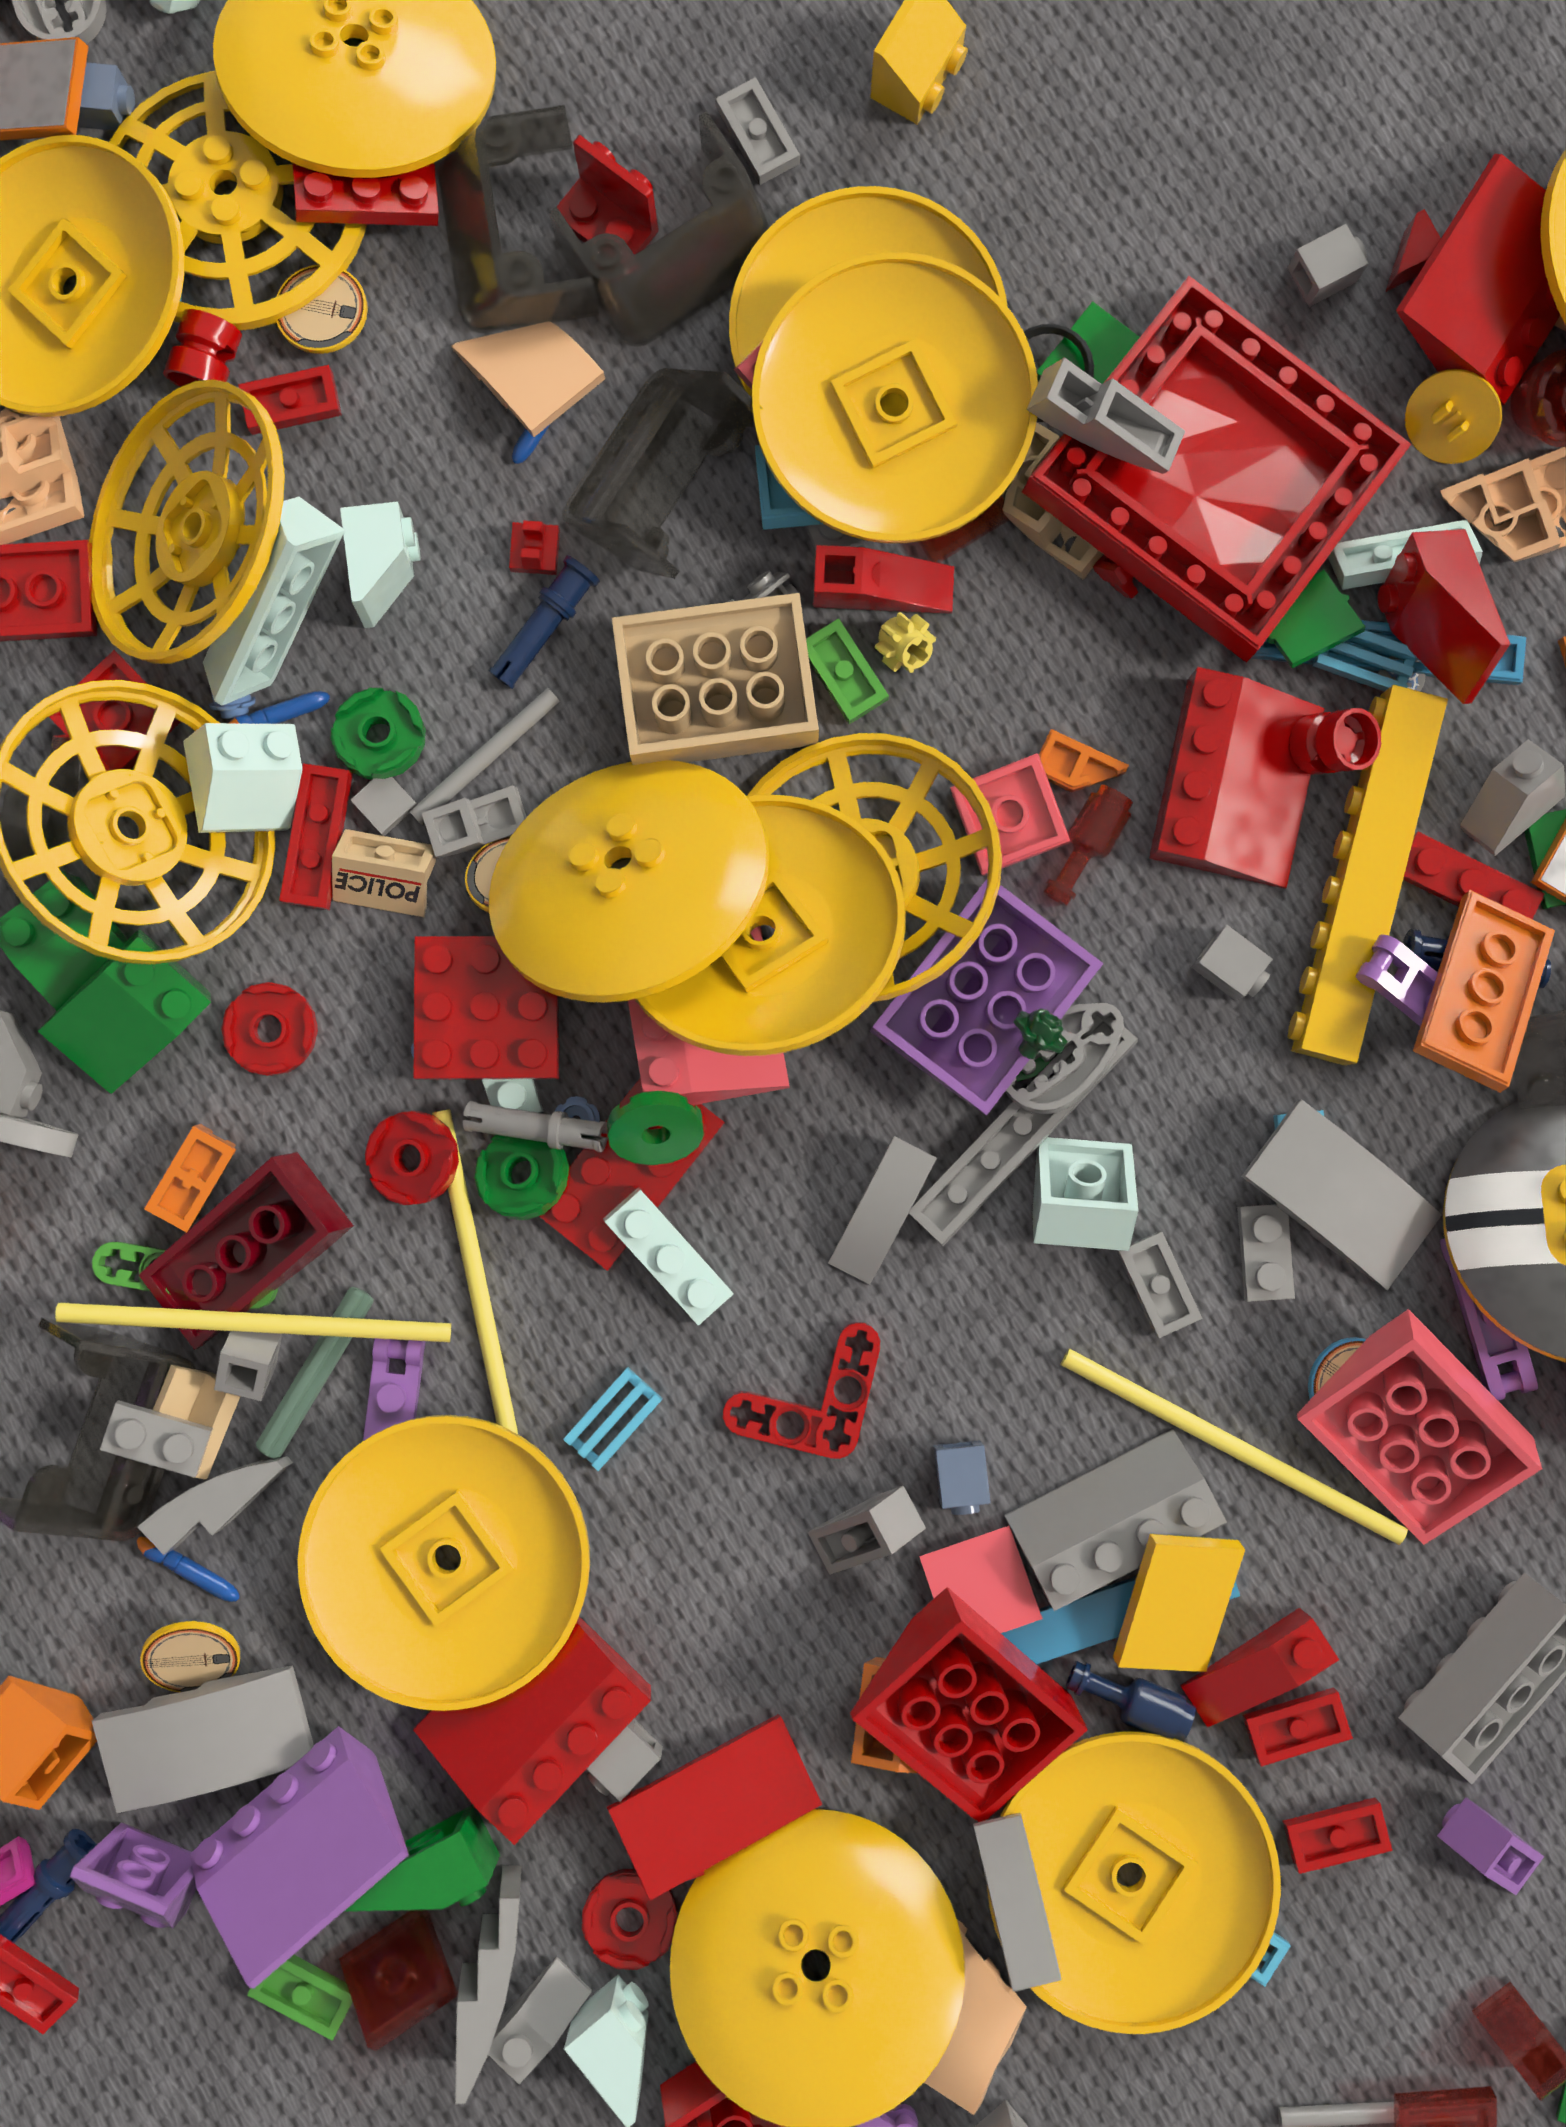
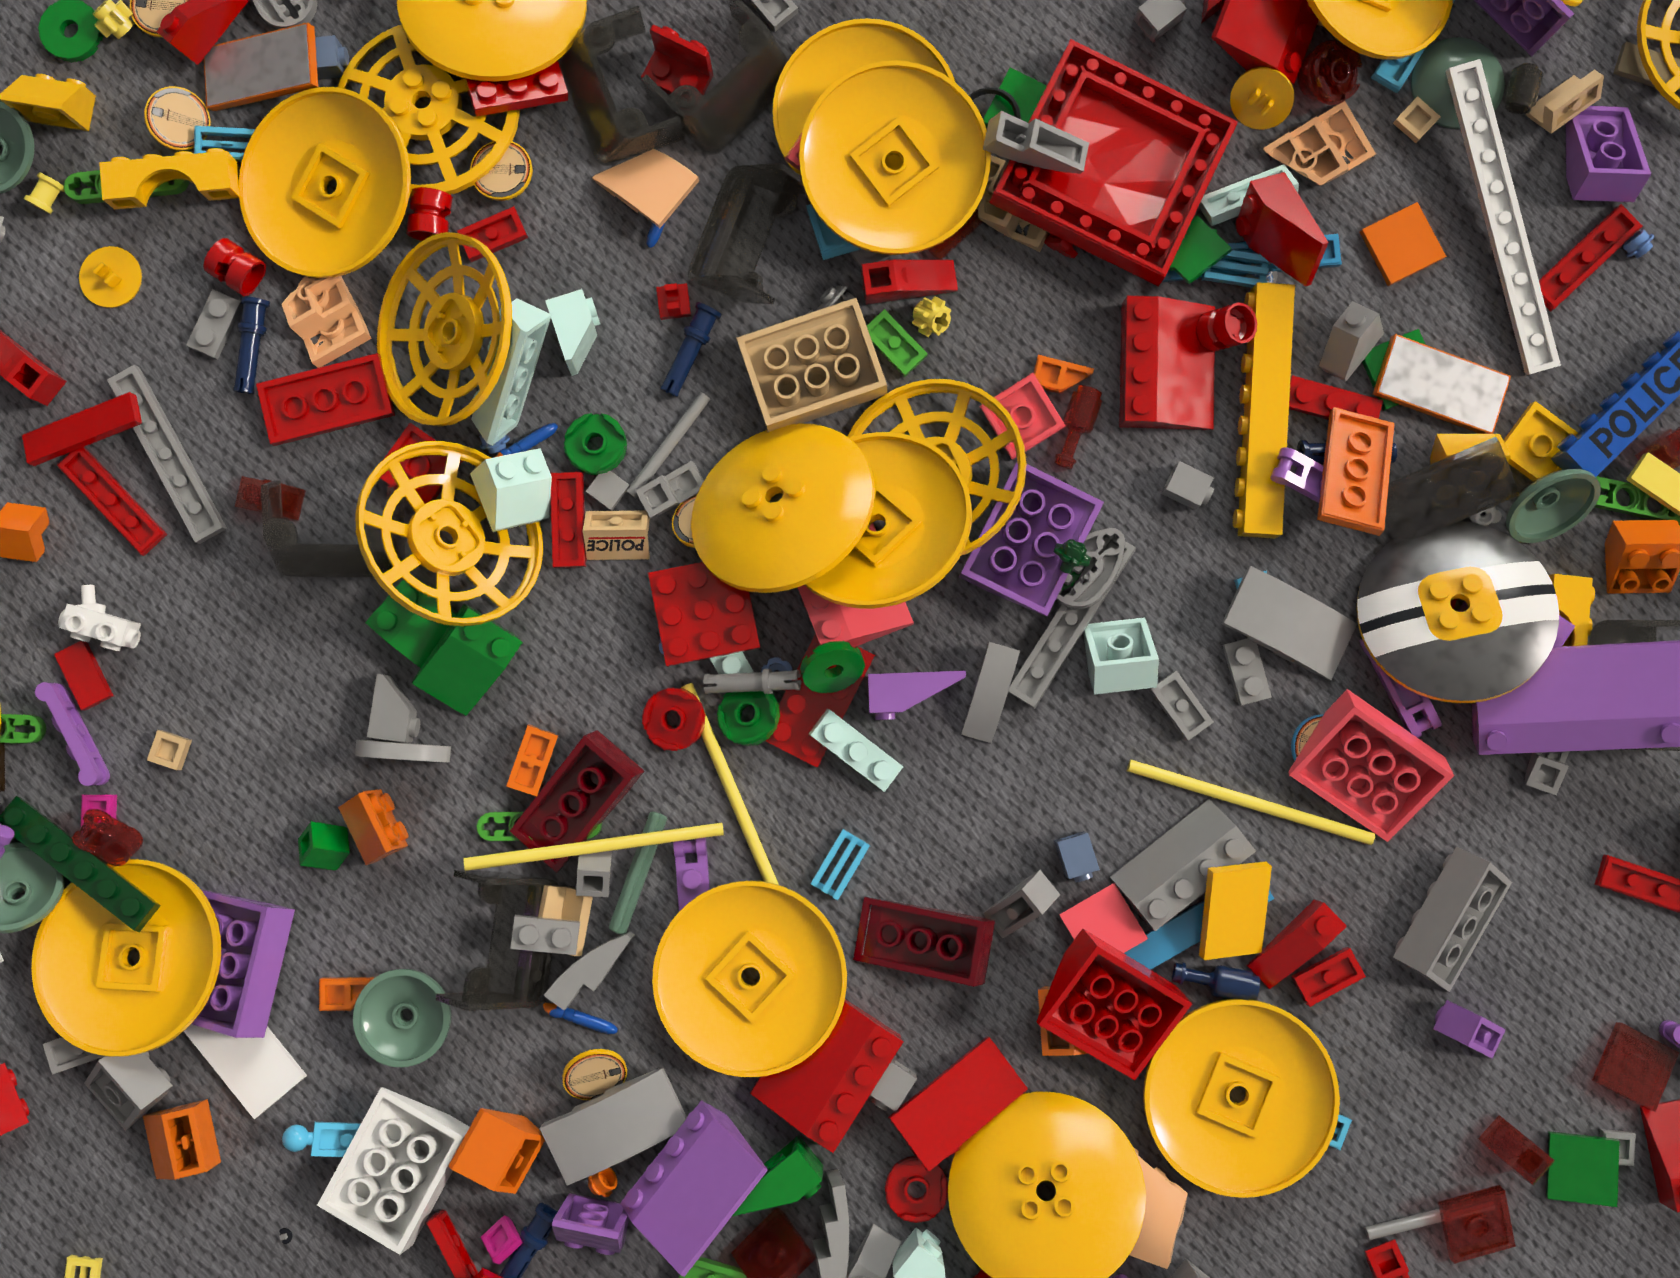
camera: 10 degrees left, 0 degrees up
(172, 1818) = (603, 1182): none -> orange plate
(296, 1036) = (581, 652): red tile -> none
(715, 1557) = (925, 941): none -> dark red slope
(746, 1183) = (900, 691): none -> medium lavender slope
(815, 1419) = (973, 838): red beam -> none
(1017, 1902) = (1168, 1124): light grey slope -> none
(1337, 1835) = (1368, 1042): red plate -> none

